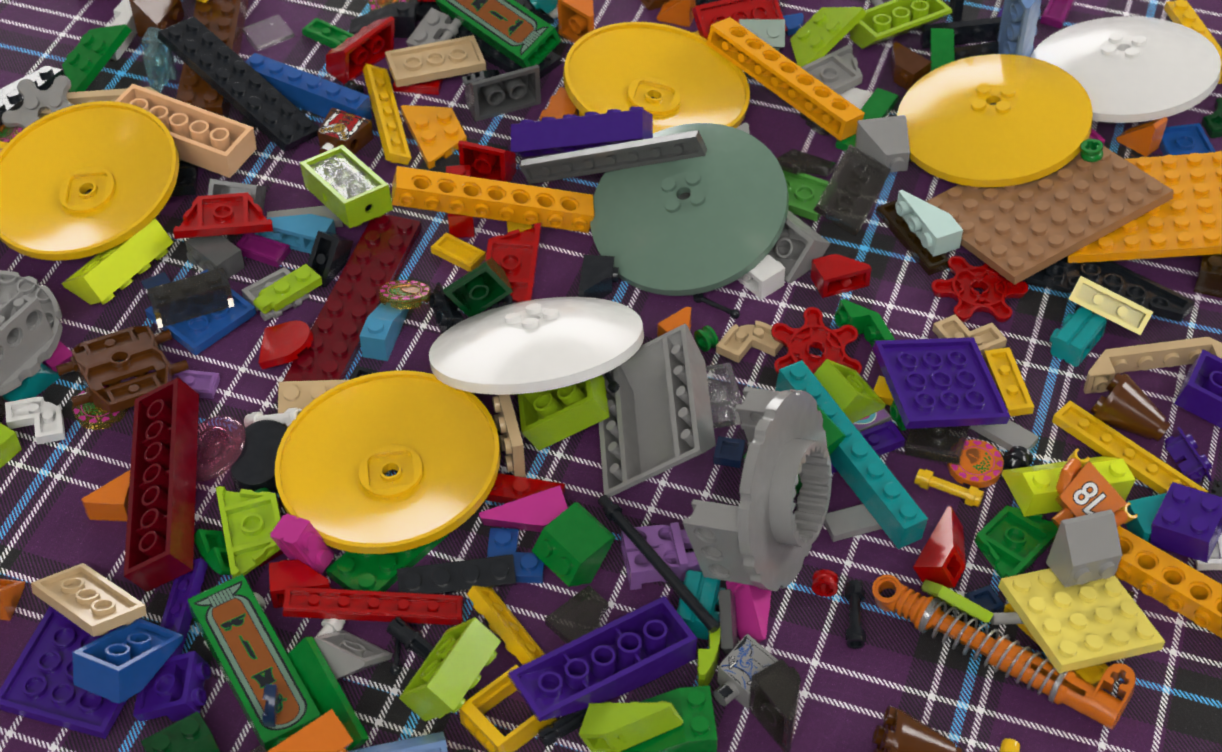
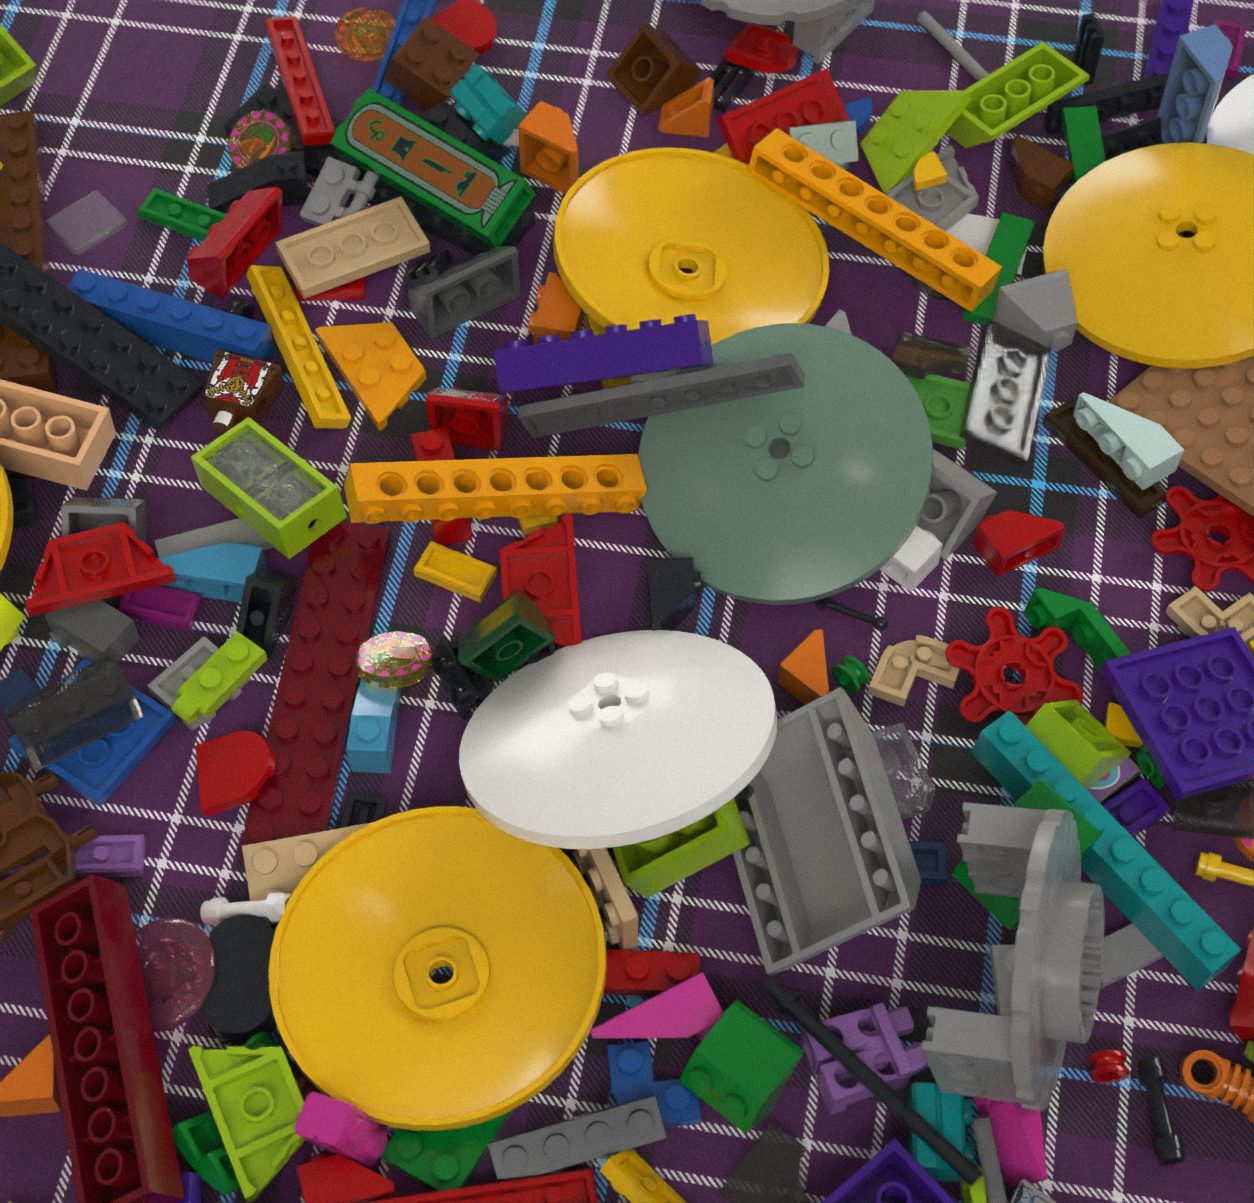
camera: 10 degrees left, 10 degrees up
(830, 57) = (929, 172): none -> yellow tile

